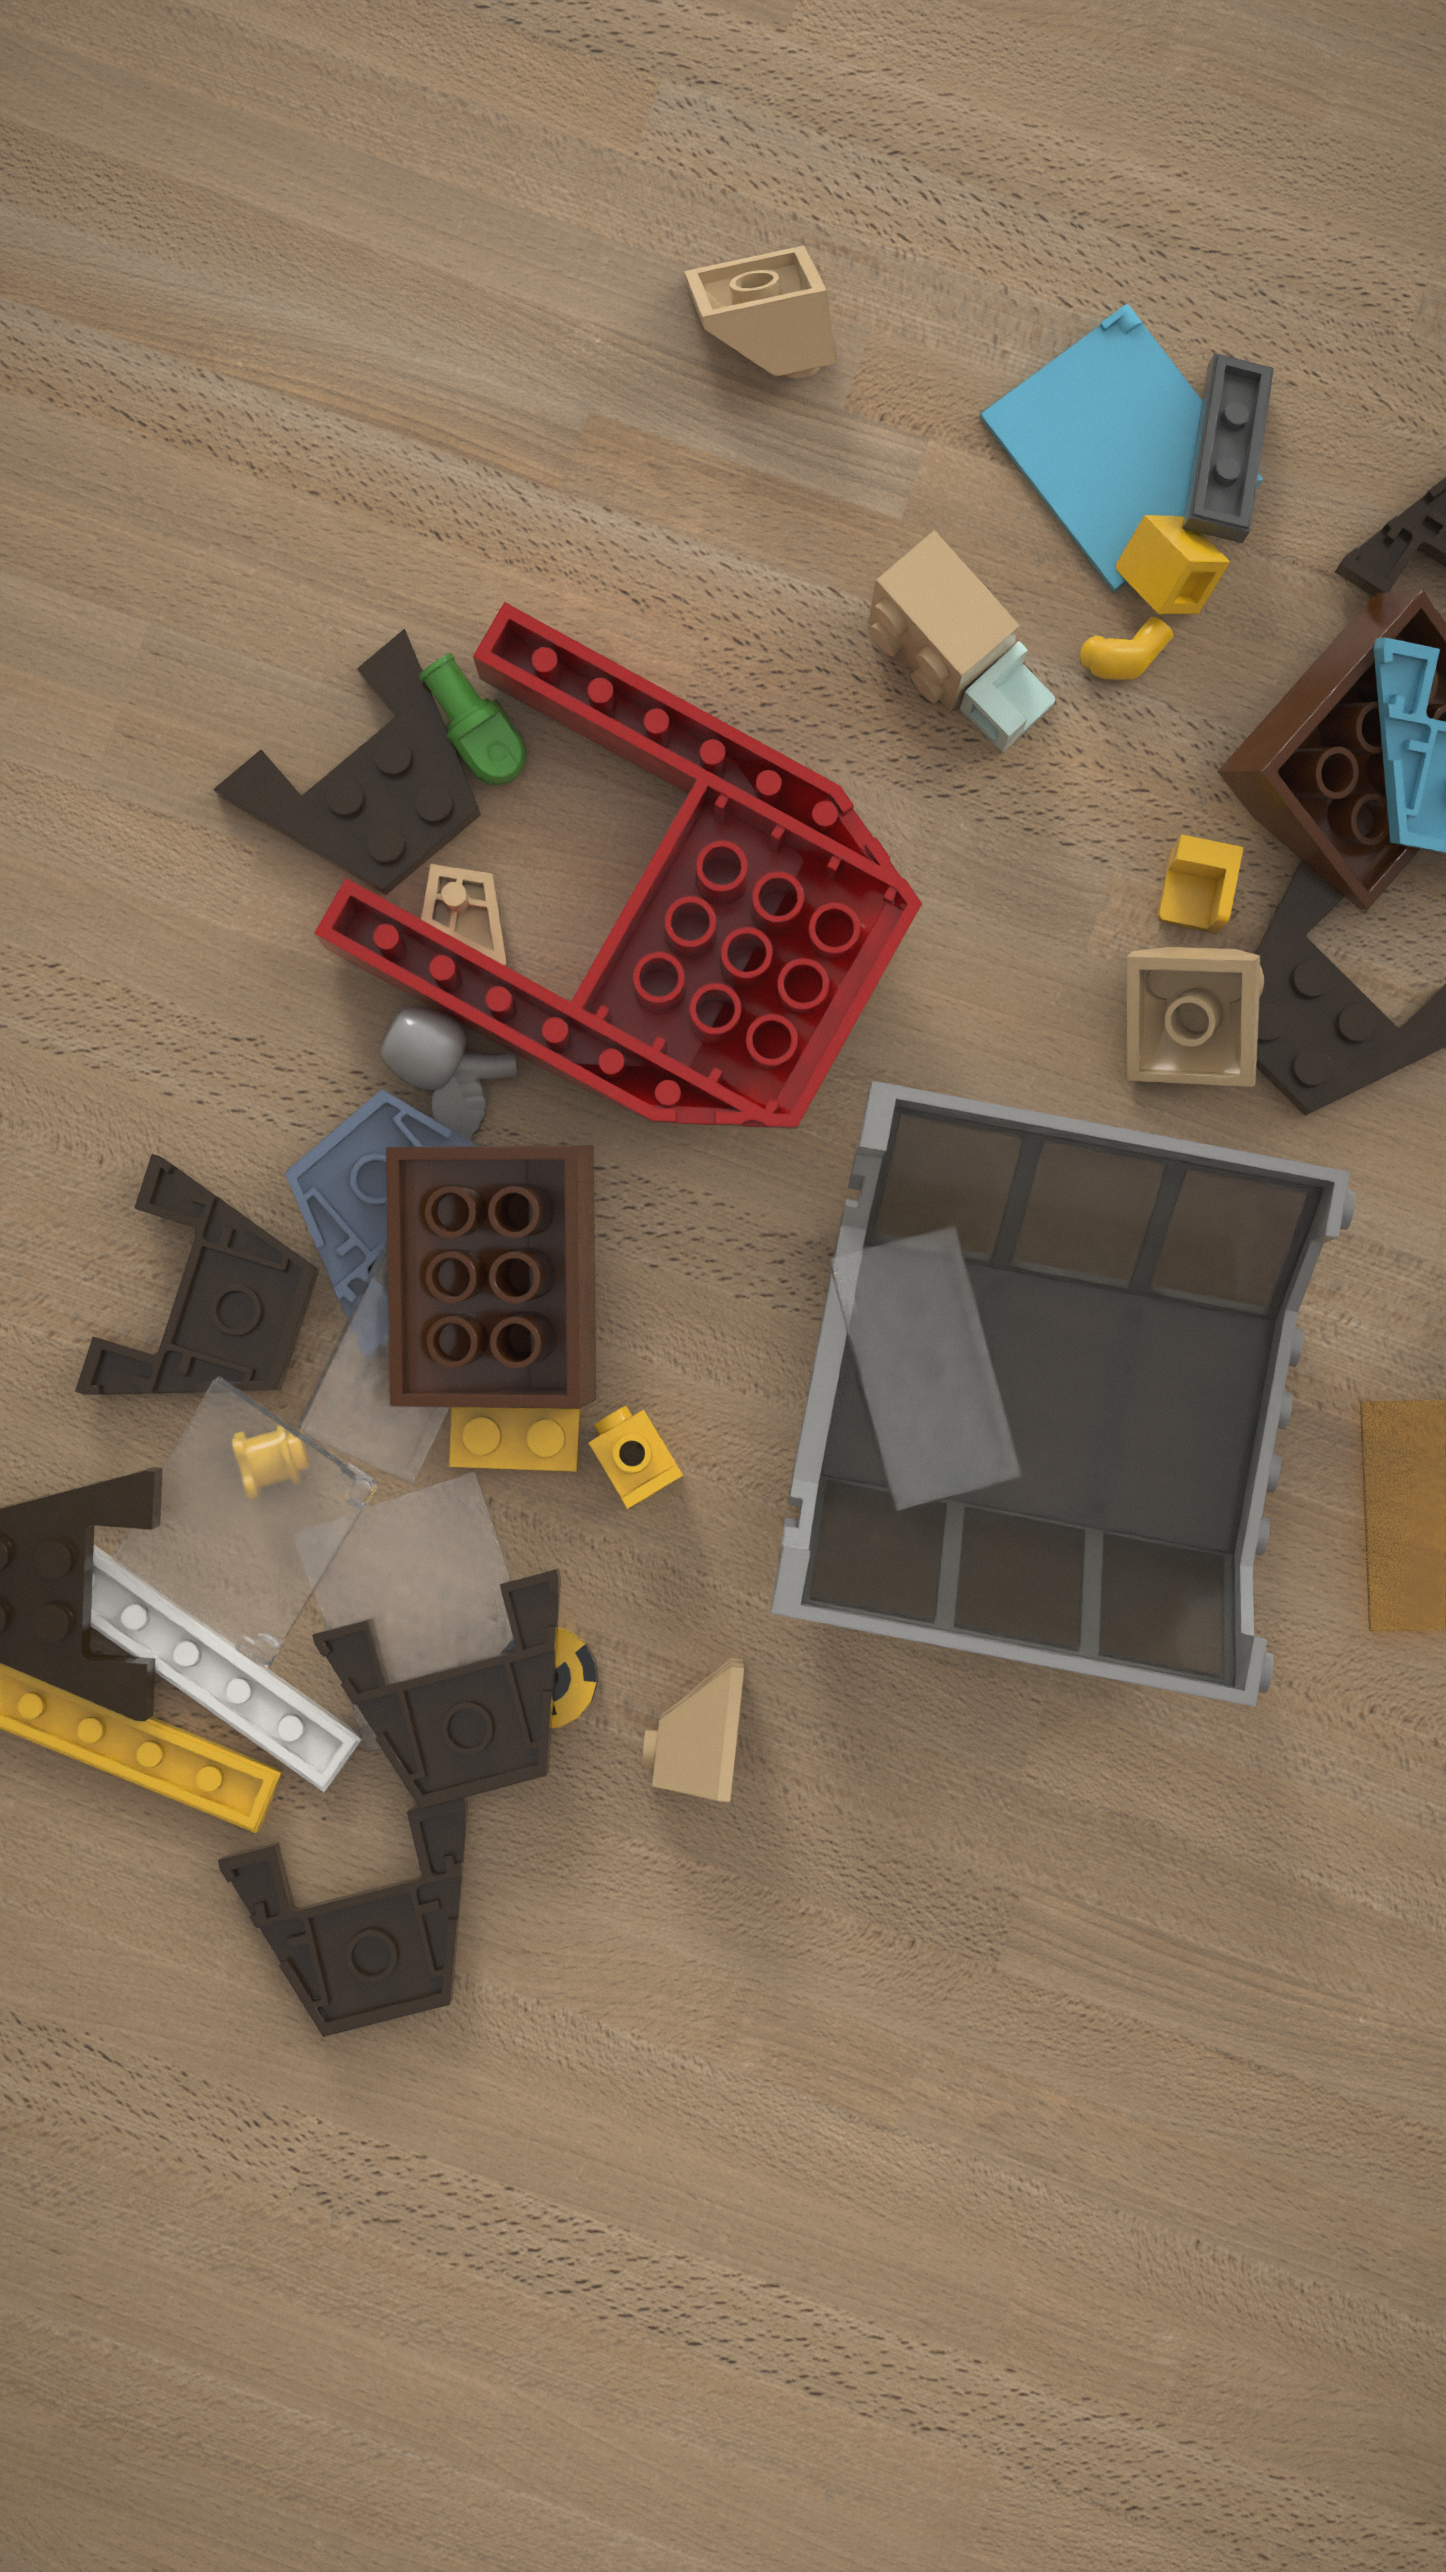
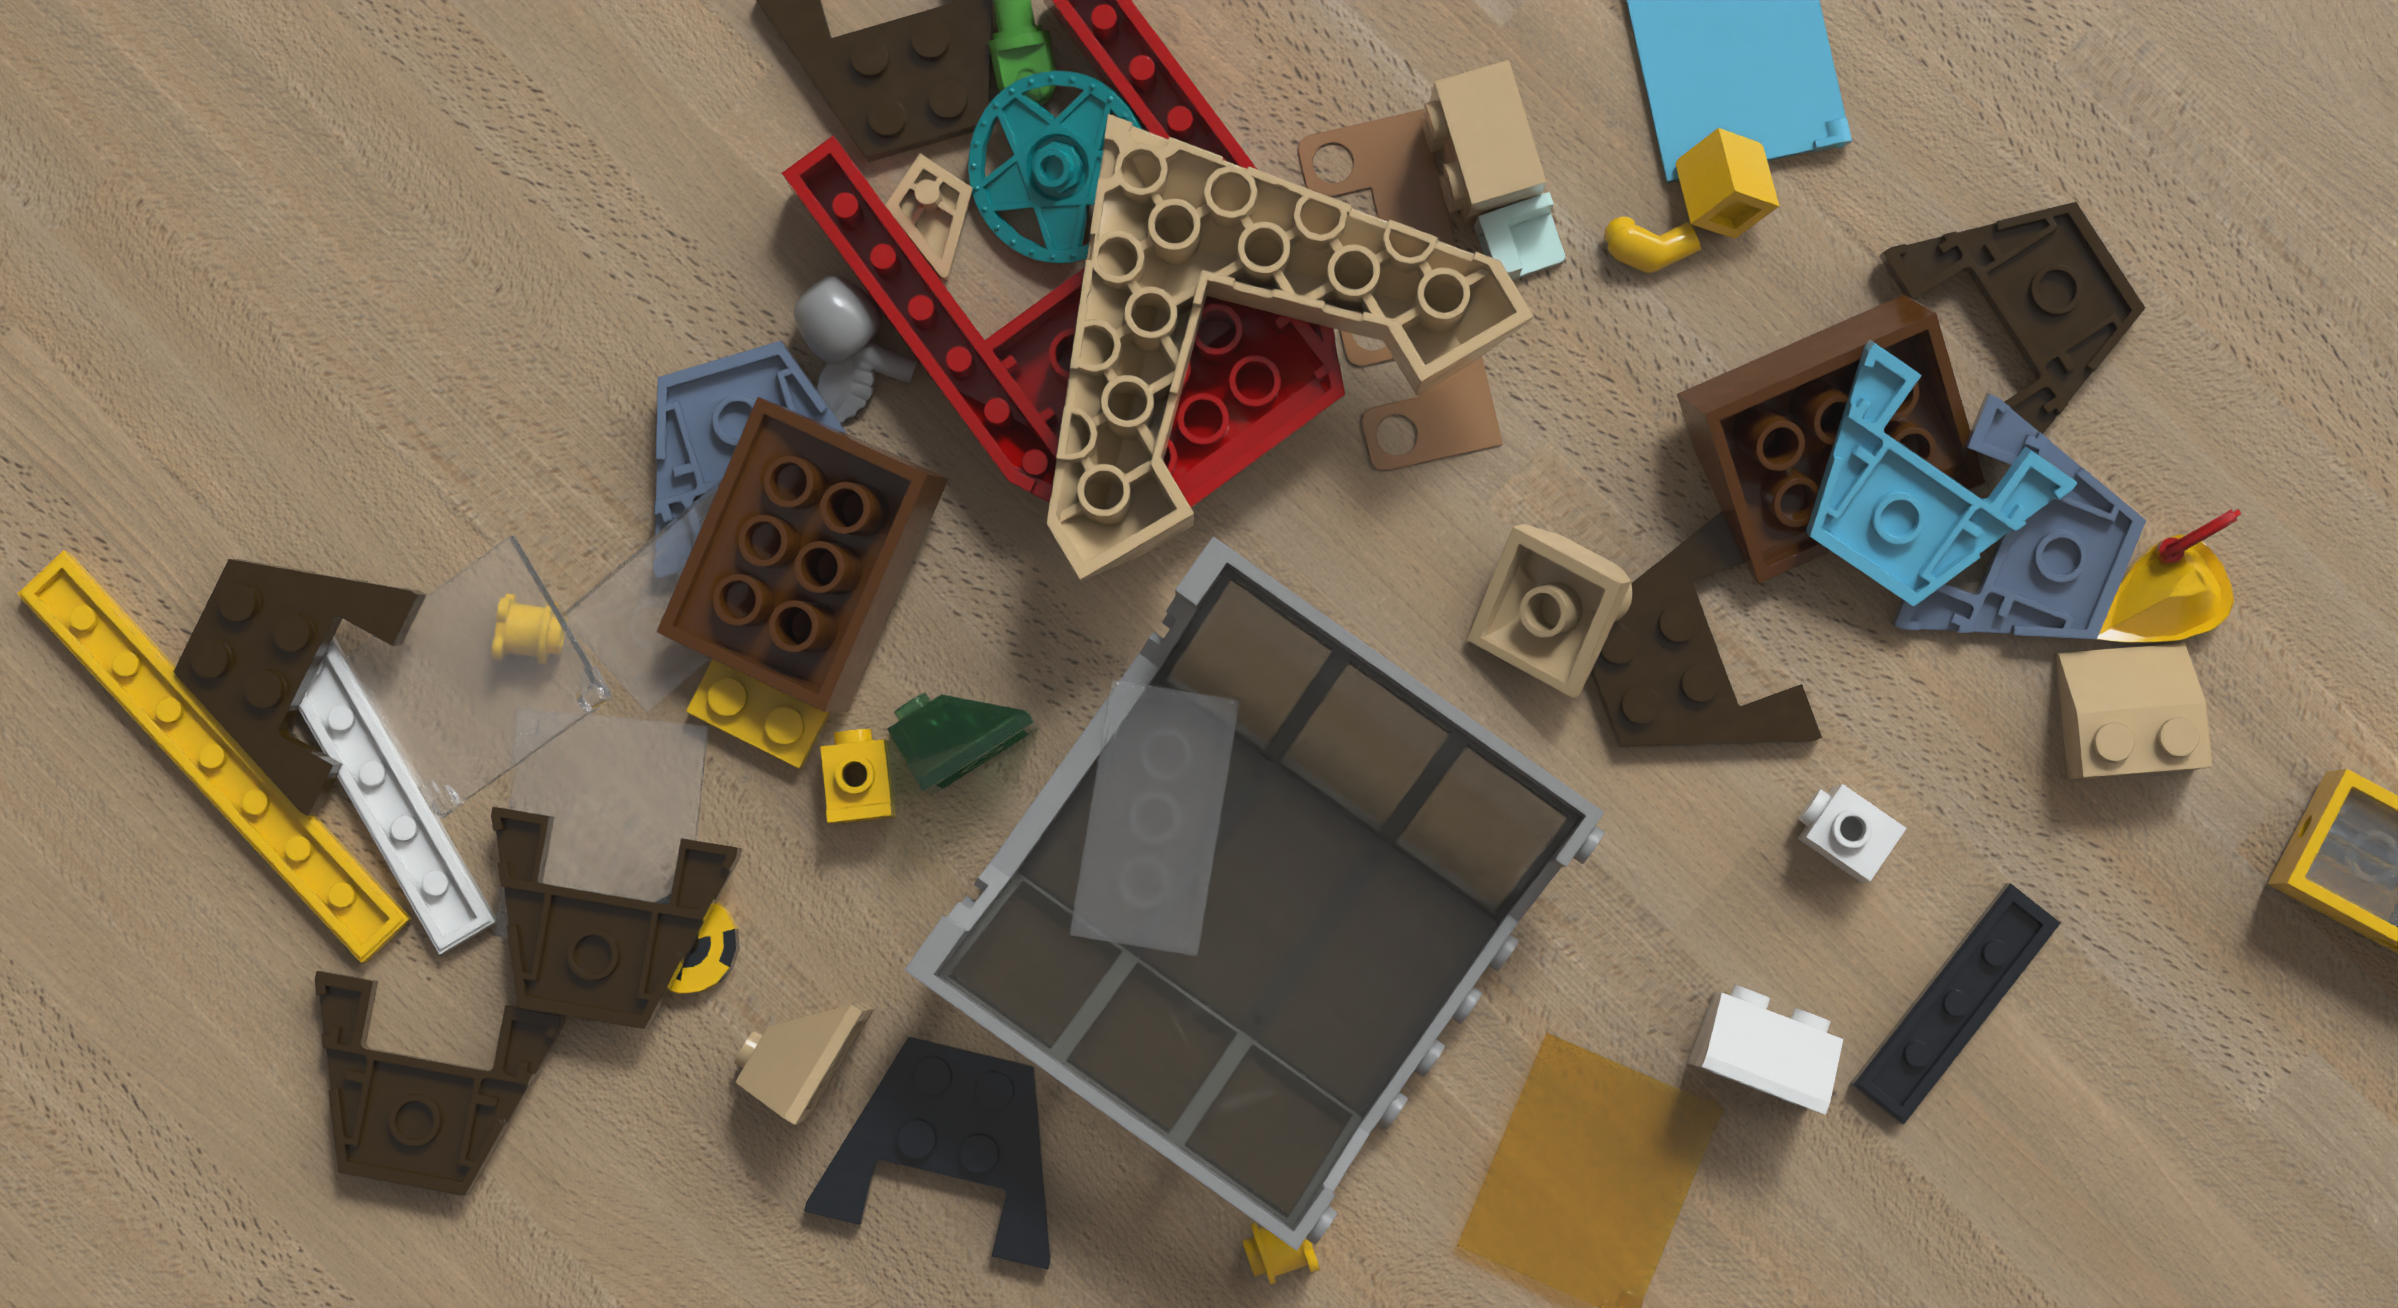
camera: 30 degrees right, 0 degrees up
(232, 1309) = (555, 480): dark brown wing -> none
(564, 817) = (1052, 162): none -> teal wheel
(706, 1376) = (954, 736): none -> clear green slope
(719, 808) = (1192, 227): none -> tan wedge
(865, 1725) = (954, 1118): none -> black wing
(949, 788) = (1406, 188): none -> medium nougat piece
(1200, 884) = (1616, 490): yellow panel -> none
(1212, 1717) = (1275, 1257): none -> yellow brick
(1228, 448) = (1829, 98): dark grey tile -> none

